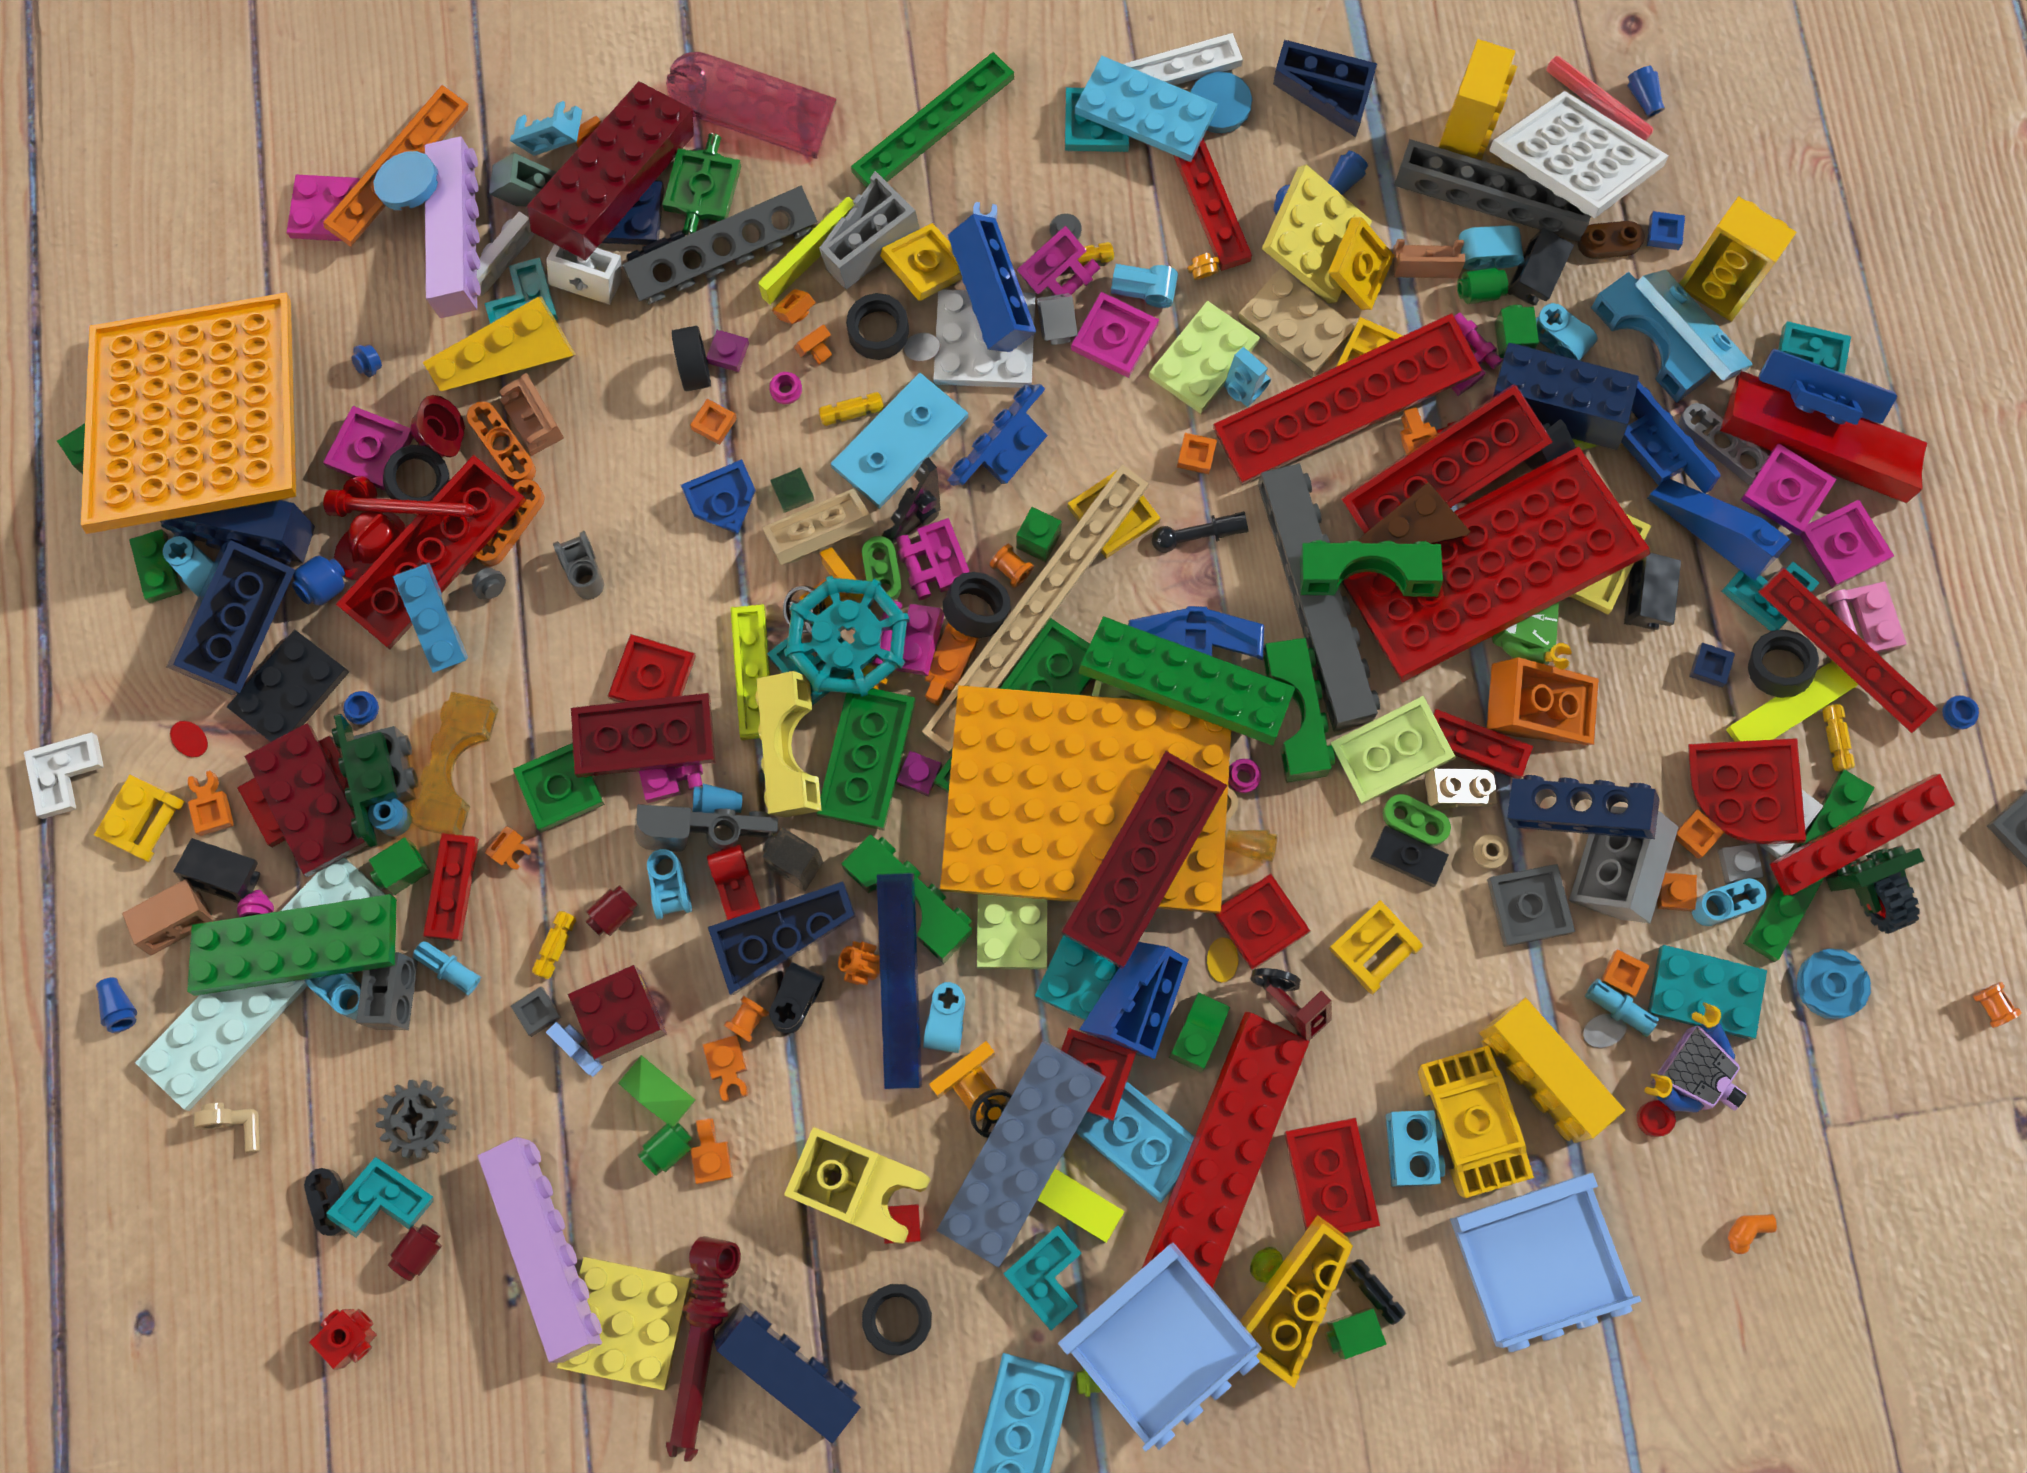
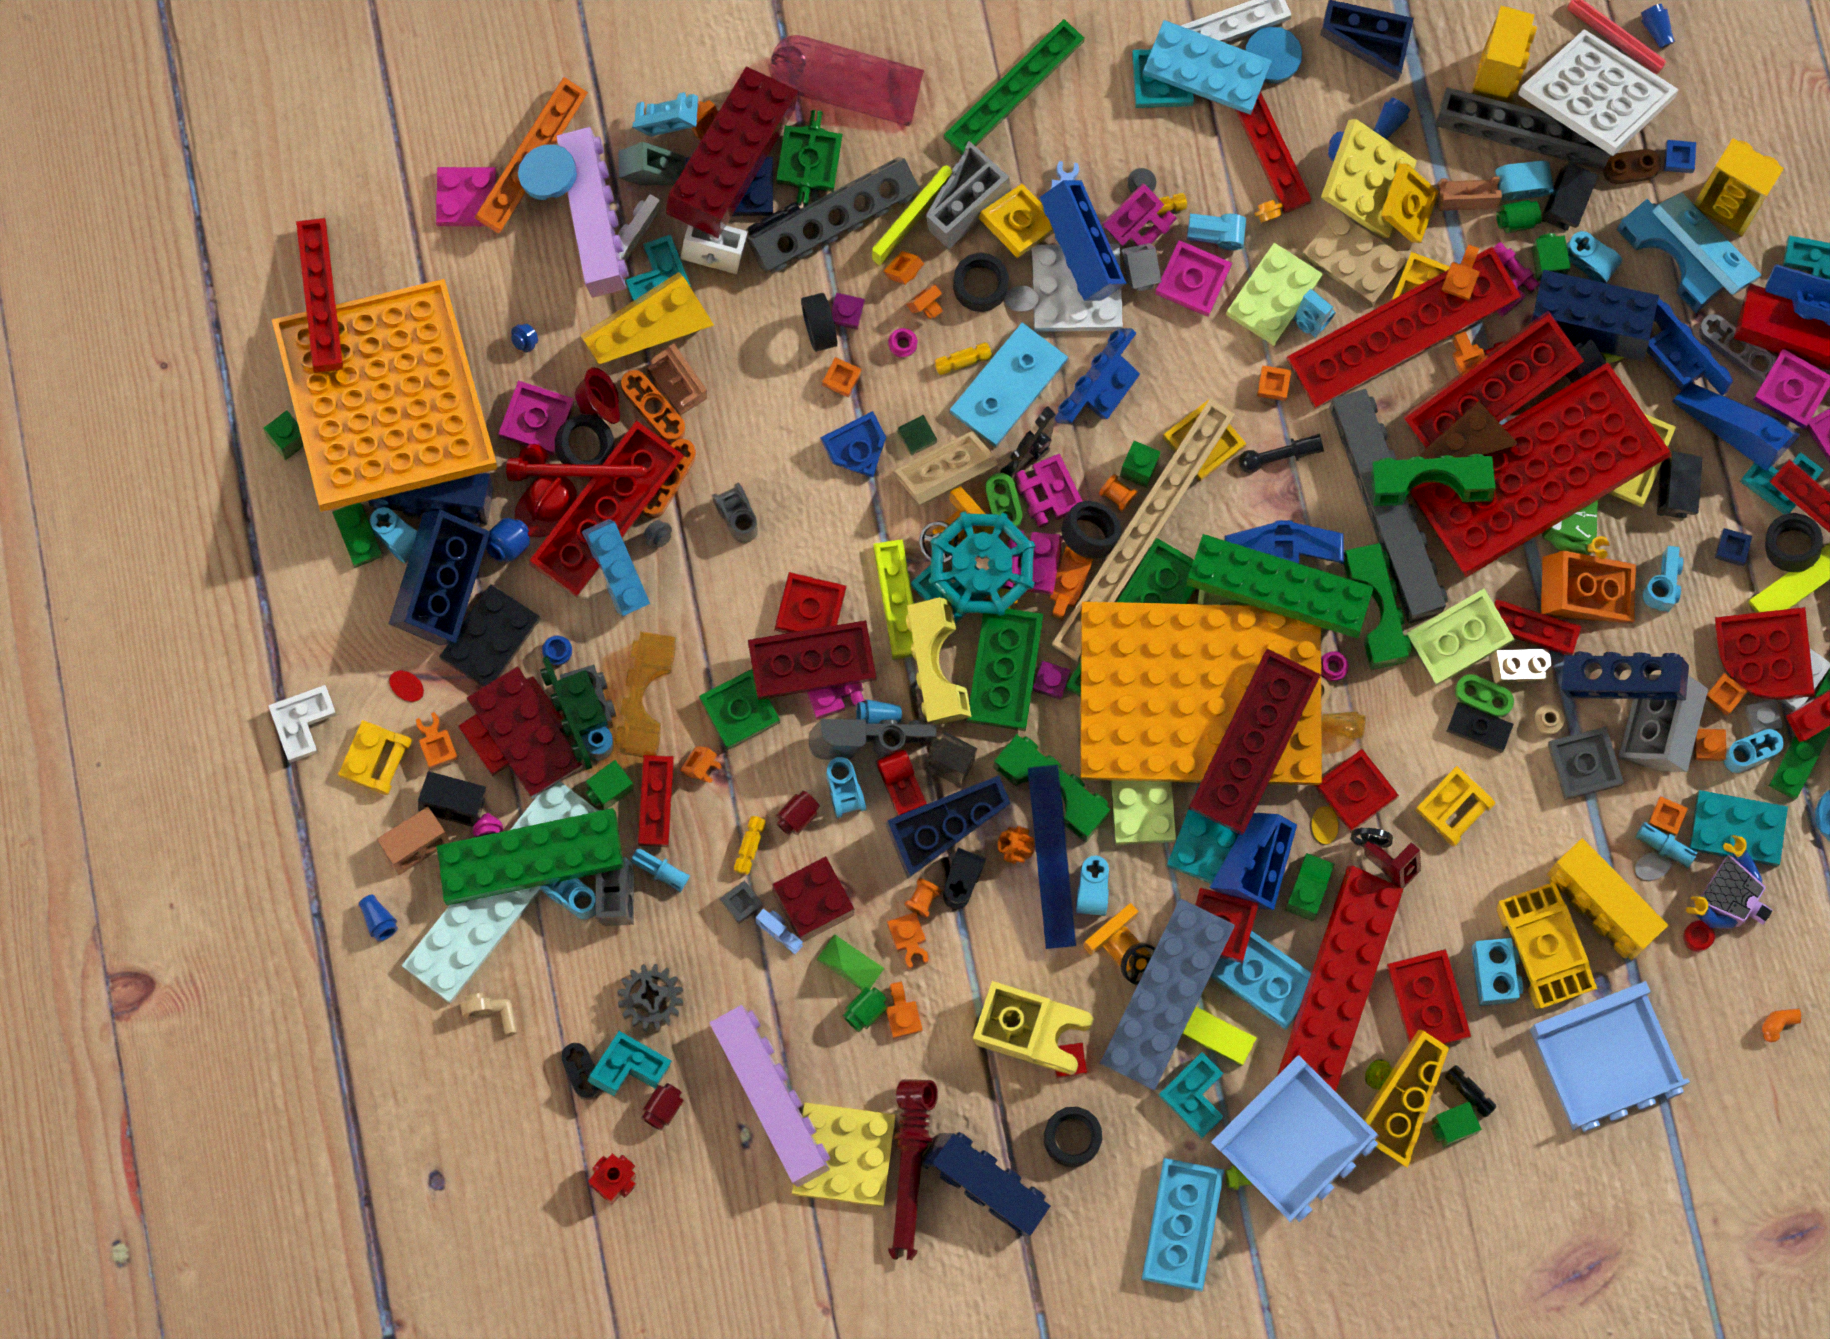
camera: 10 degrees left, 0 degrees up
(140, 302) = (319, 295): none -> red plate
(1416, 344) = (1461, 277): none -> orange plate
(1639, 684) = (1671, 567): none -> medium azure plate

